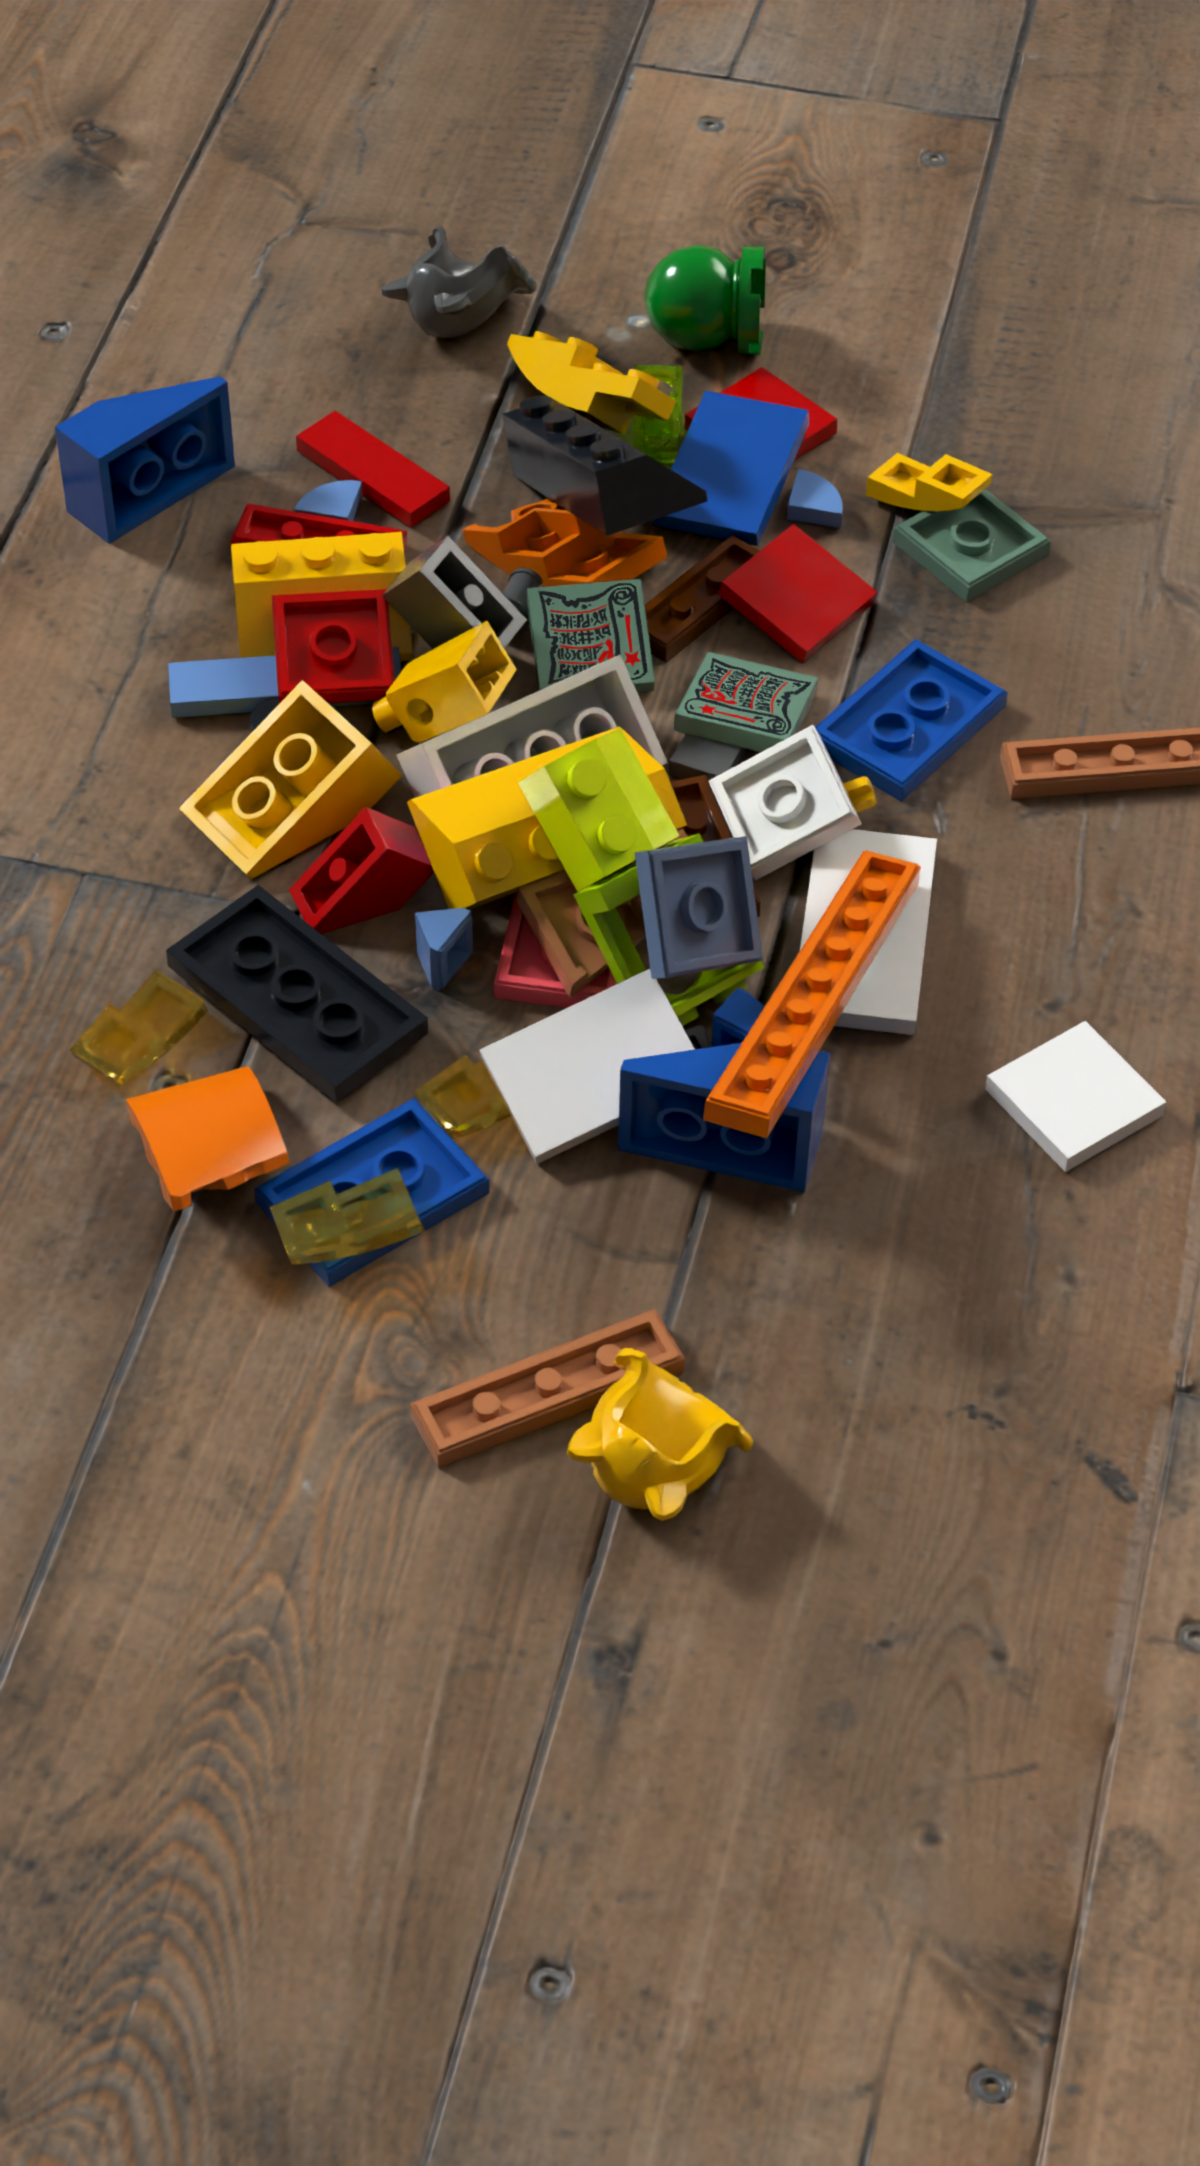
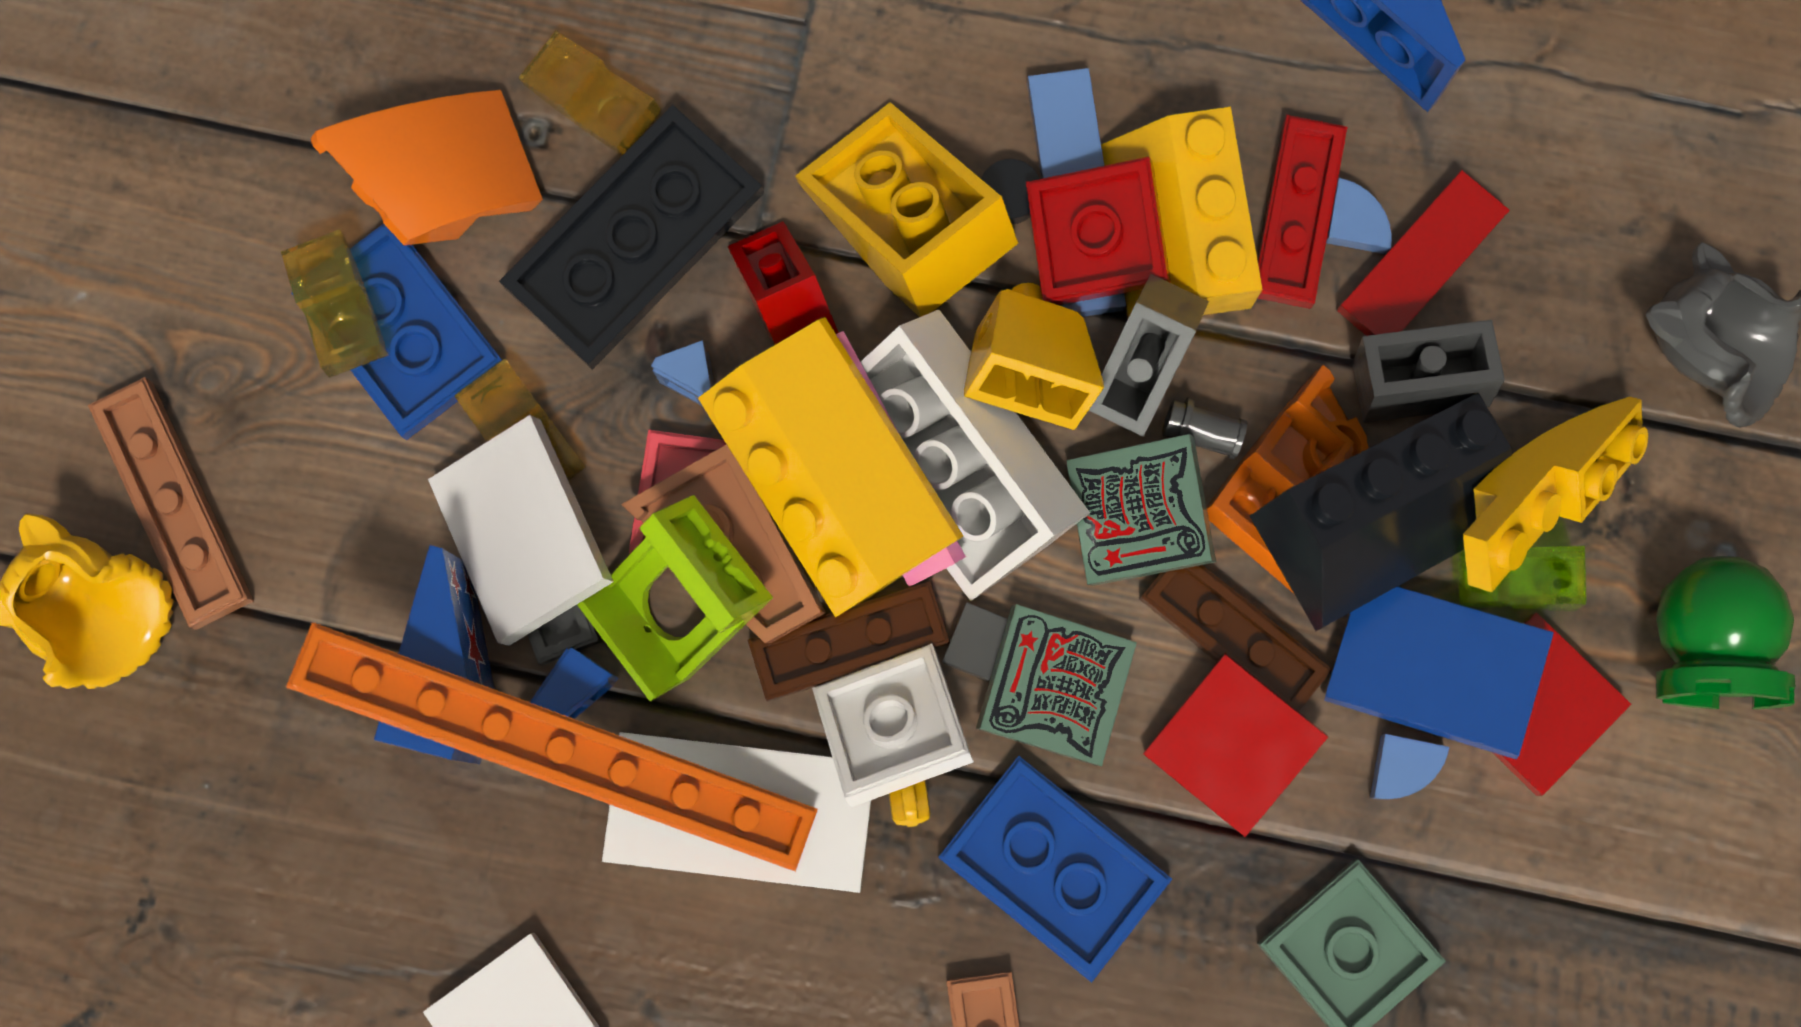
camera: 95 degrees right, 30 degrees up
(478, 452) = (1426, 370): none -> dark grey brick
(598, 808) = (787, 519): neon yellow slope -> none
(698, 907) = (660, 623): sand blue plate -> none
(915, 486) = (1423, 900): yellow slope -> none

